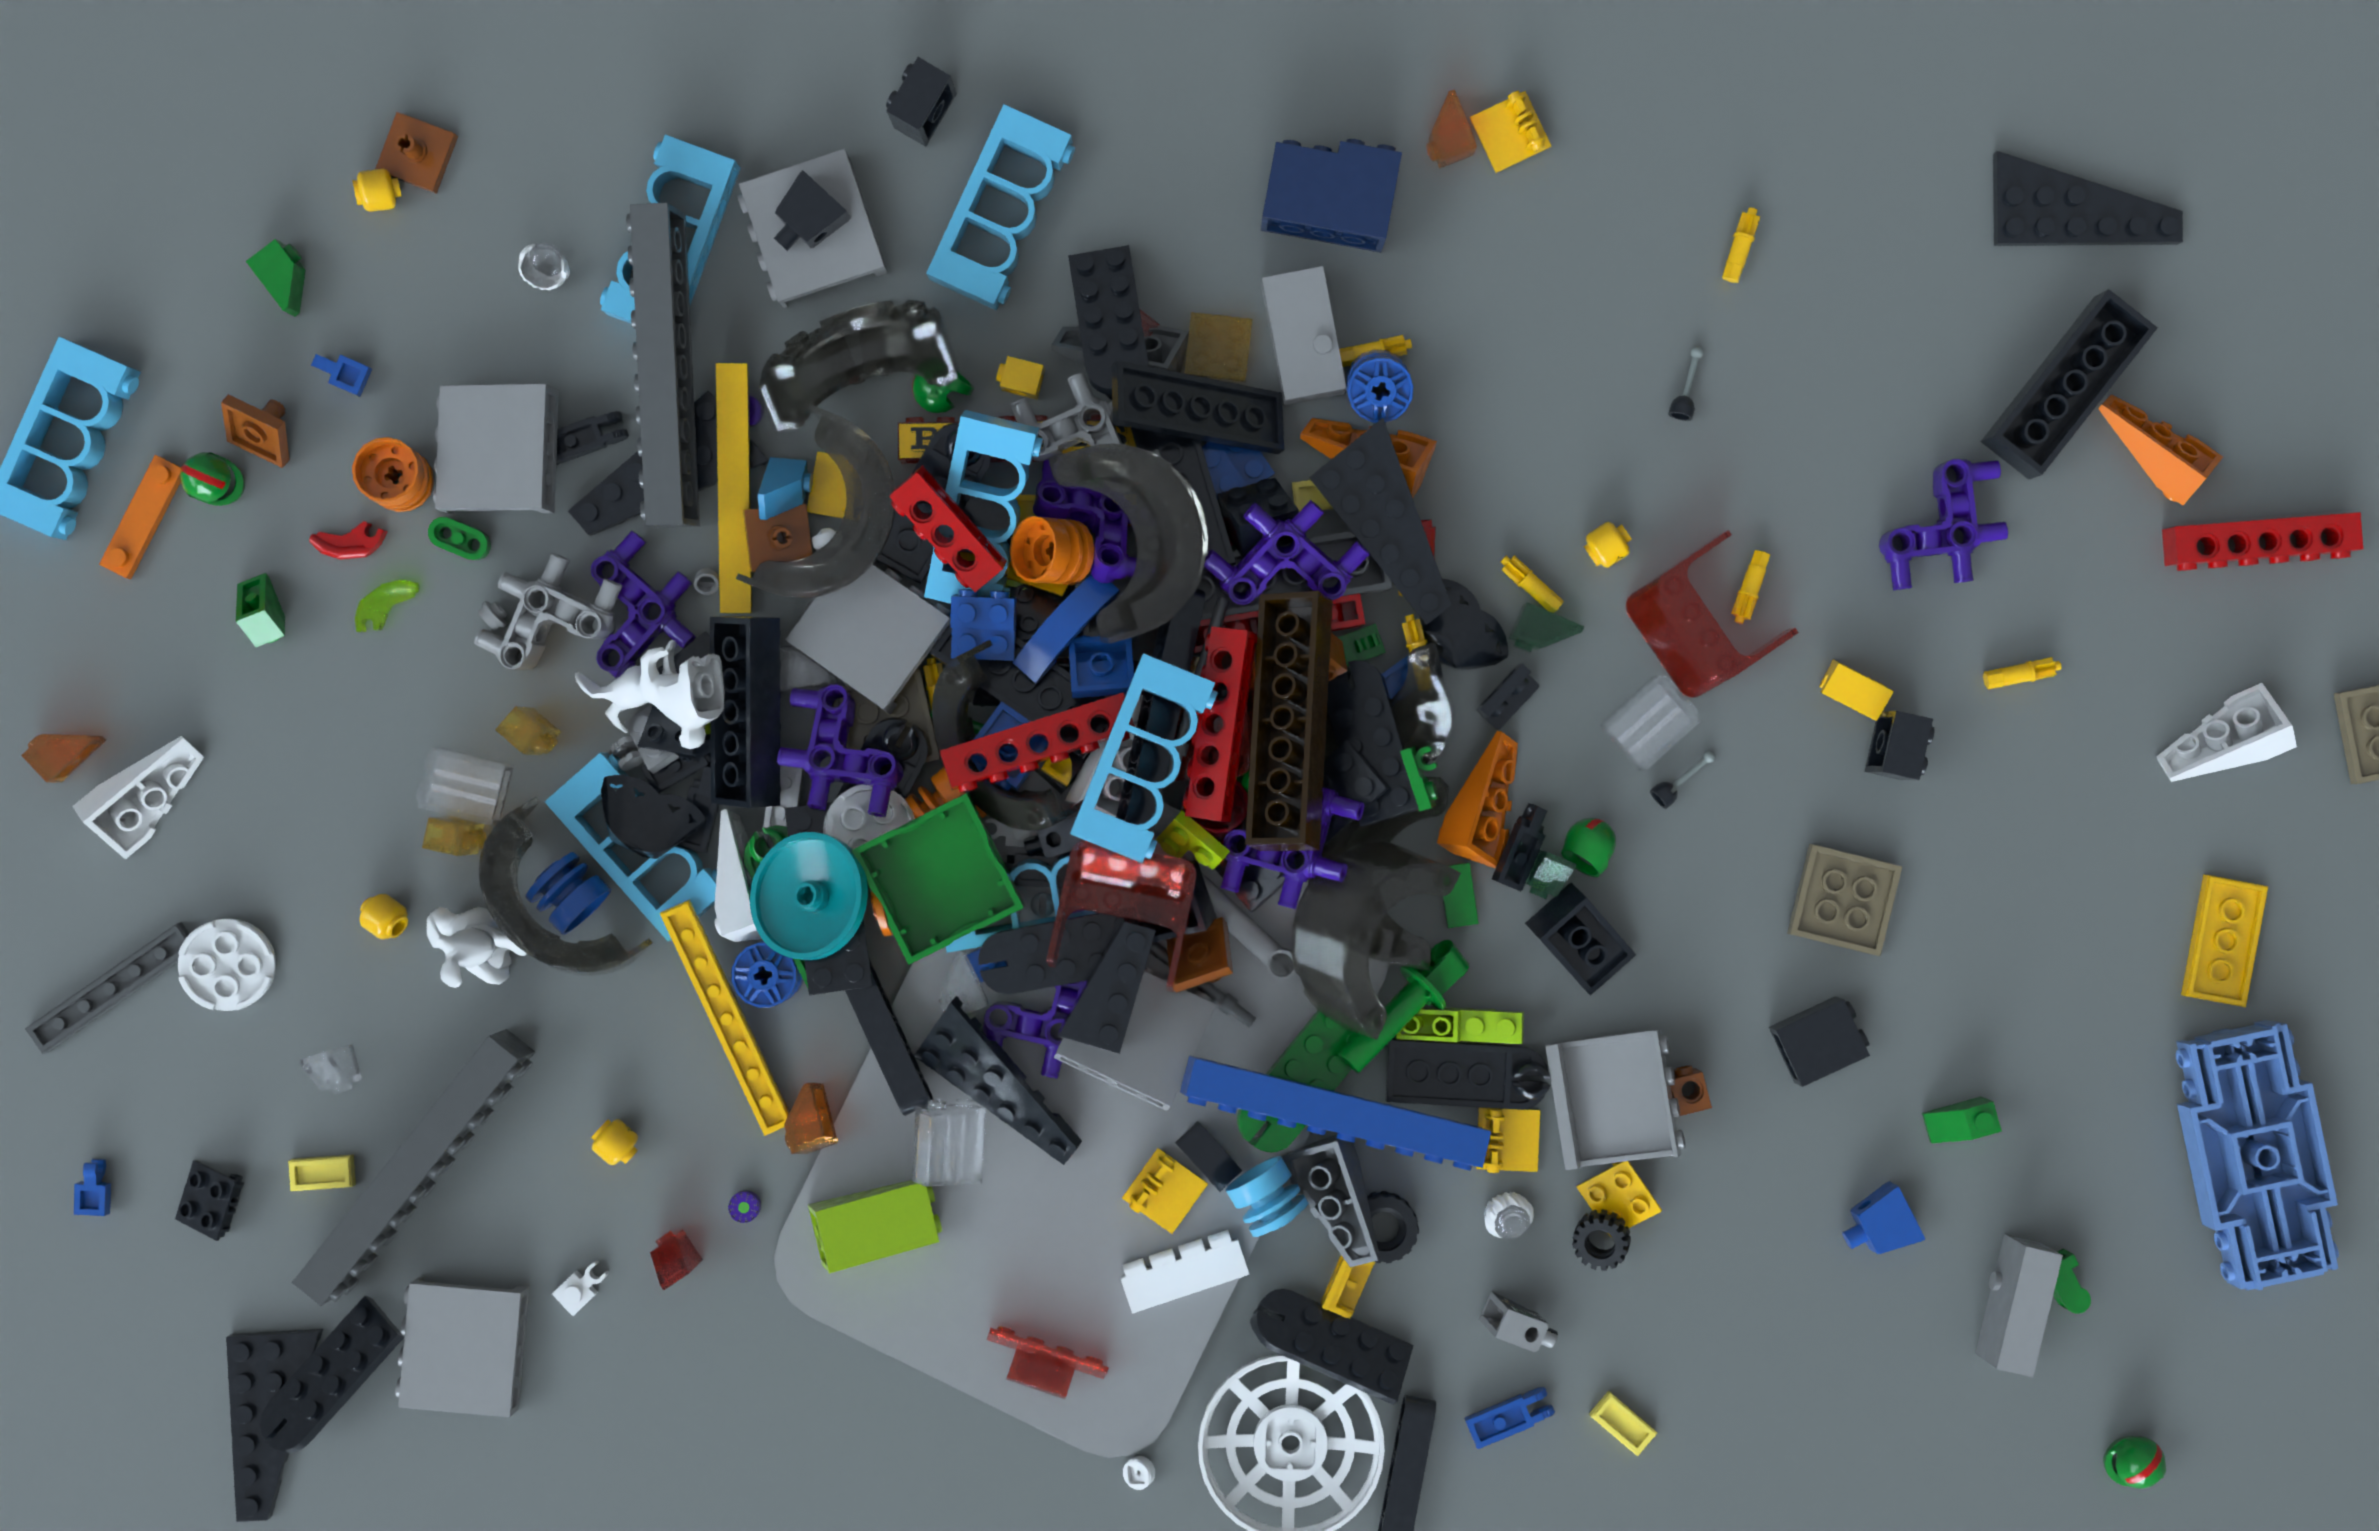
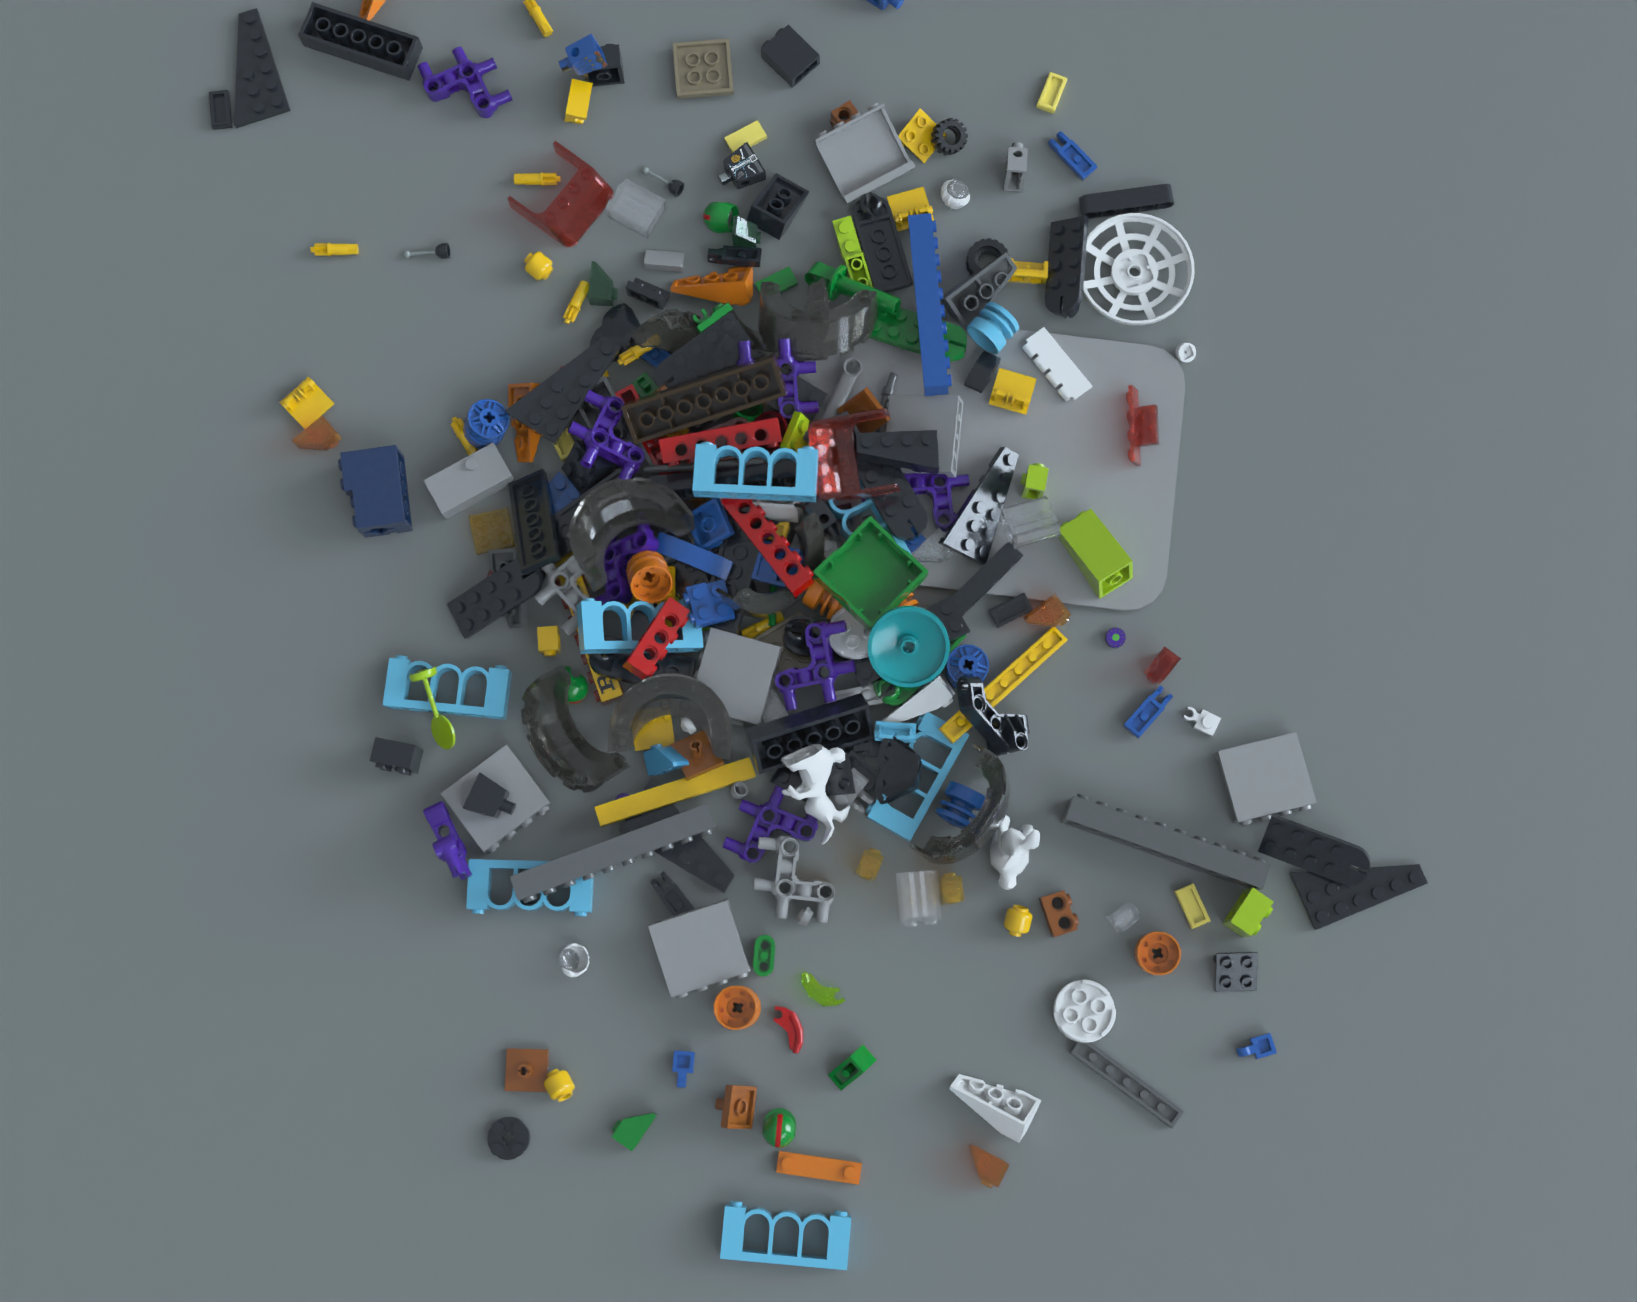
camera: 110 degrees left, 10 degrees down
(247, 1096) = (1169, 951): none -> orange wheel
(274, 1248) = (1248, 913): none -> lime brick
(321, 82) = (517, 1146): none -> black plate
(373, 972) = (1053, 915): none -> dark orange brick
(614, 1142) = (1104, 727): yellow head -> none
(617, 1212) = (1146, 713): none -> blue hinge
(654, 989) = (1001, 731): none -> black connector
(702, 844) = (903, 731): none -> medium azure hinge
(749, 138) = (447, 848): none -> dark purple pin
(836, 1068) = (1010, 610): none -> black tile
(944, 178) = (440, 726): none -> lime piece
(1008, 1173) = (1034, 481): none -> lime brick
(1553, 738) = (664, 260): none -> light grey slope
(1659, 905) = (742, 168): none -> black torso
(1709, 927) = (751, 133): none -> light yellow tile
(1912, 717) = (583, 56): none -> blue torso
(2031, 138) = (220, 109): none -> black tile

